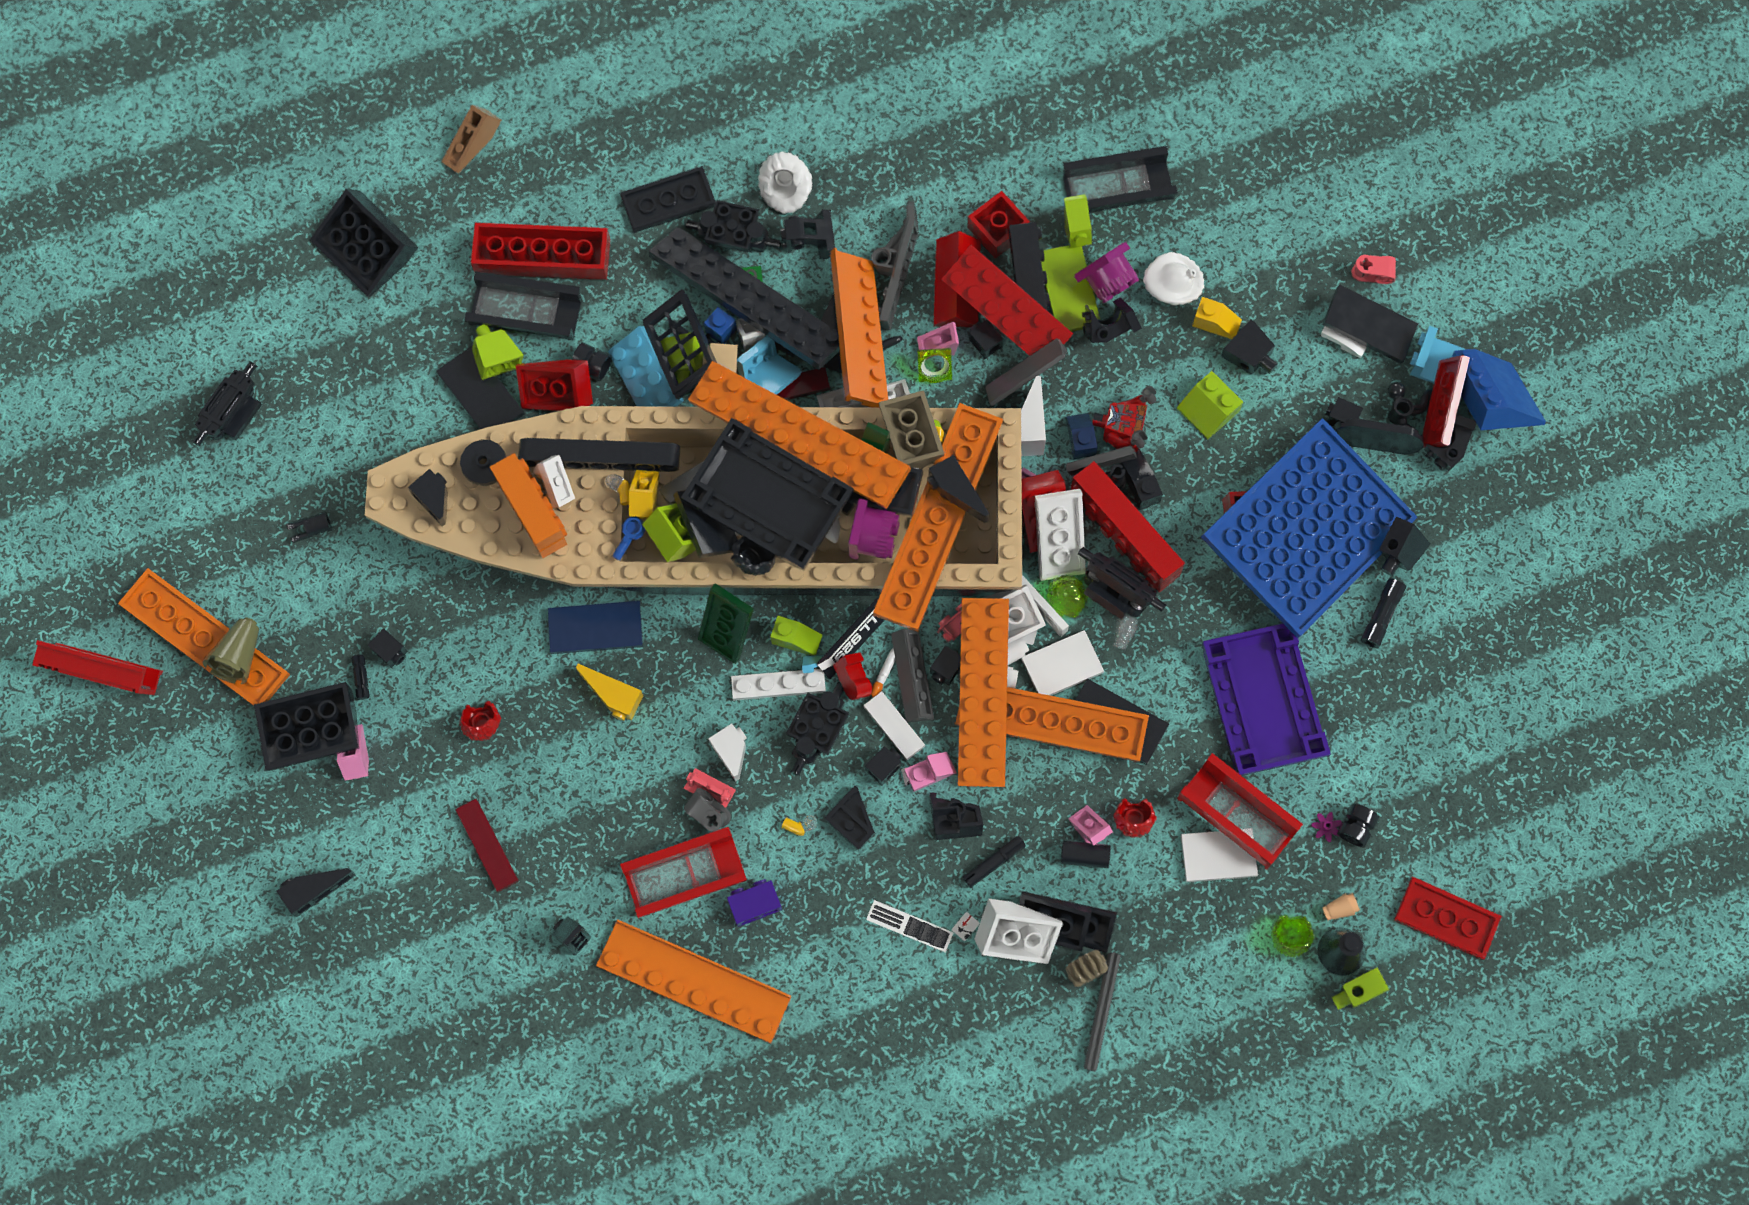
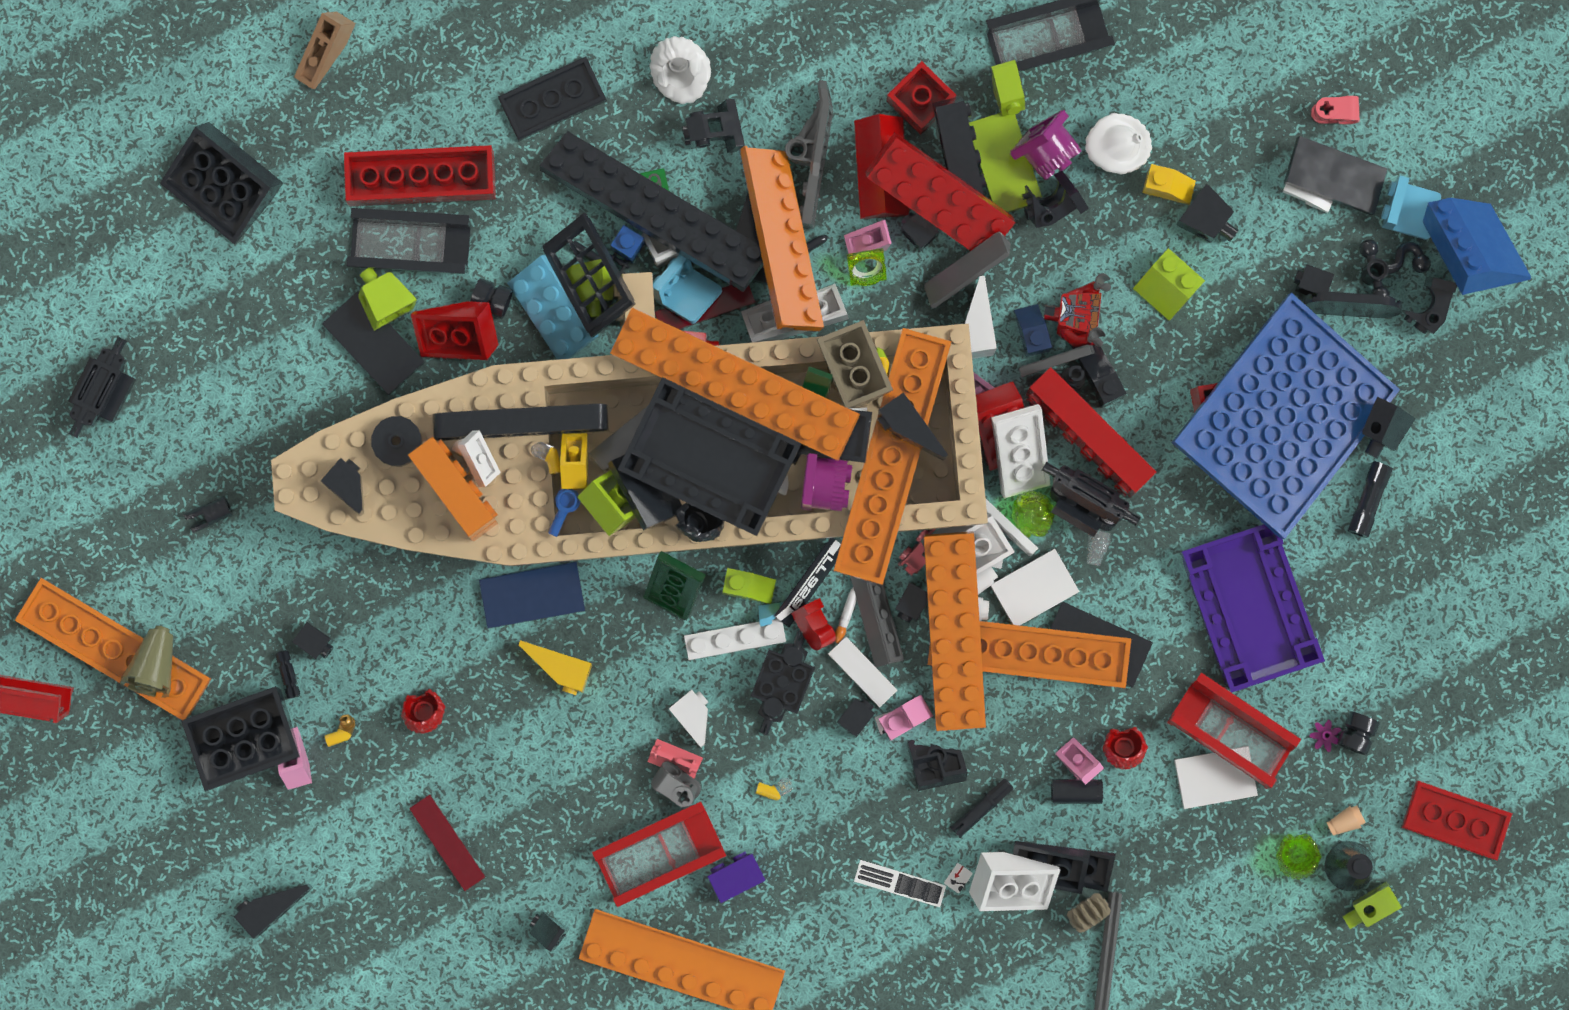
camera: 10 degrees left, 10 degrees up
(404, 735) = (343, 732): none -> arm
(733, 228) = (629, 129): black piece -> none
(851, 819) = (828, 778): black wing -> none
(1445, 401) = (1421, 261): red tile -> none

